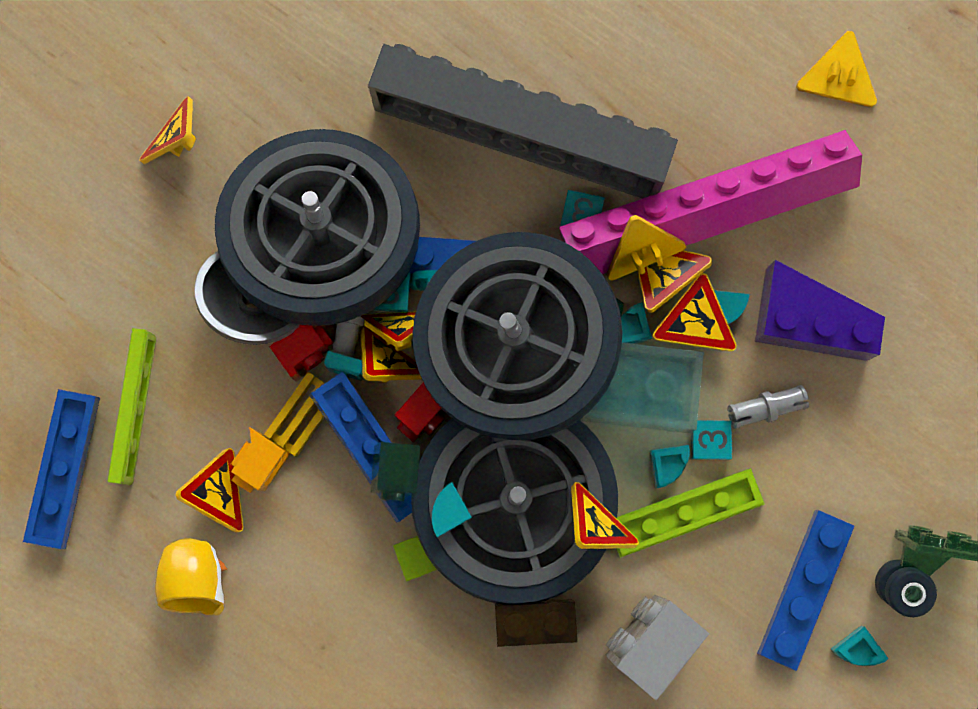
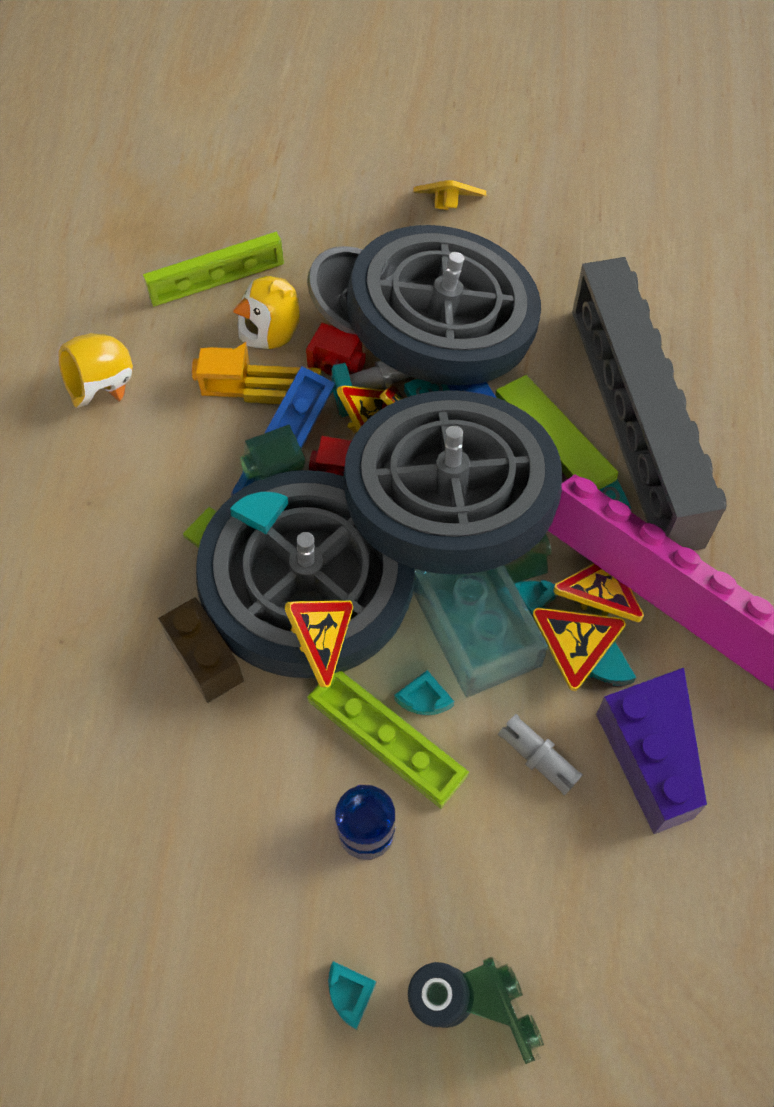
camera: 60 degrees right, 20 degrees down
(61, 469) = (138, 252): blue plate -> none
(215, 493) = (173, 352): piece -> none
(219, 384) = (273, 308): none -> yellow piece
(498, 212) = (575, 450): none -> lime tile
(642, 246) = (608, 549): yellow piece -> none
(655, 644) = (232, 747): light grey brick -> none
(712, 440) = (472, 721): teal tile -> none
(753, 570) = (365, 821): none -> clear blue wheel
(805, 589) = (379, 898): blue plate -> none

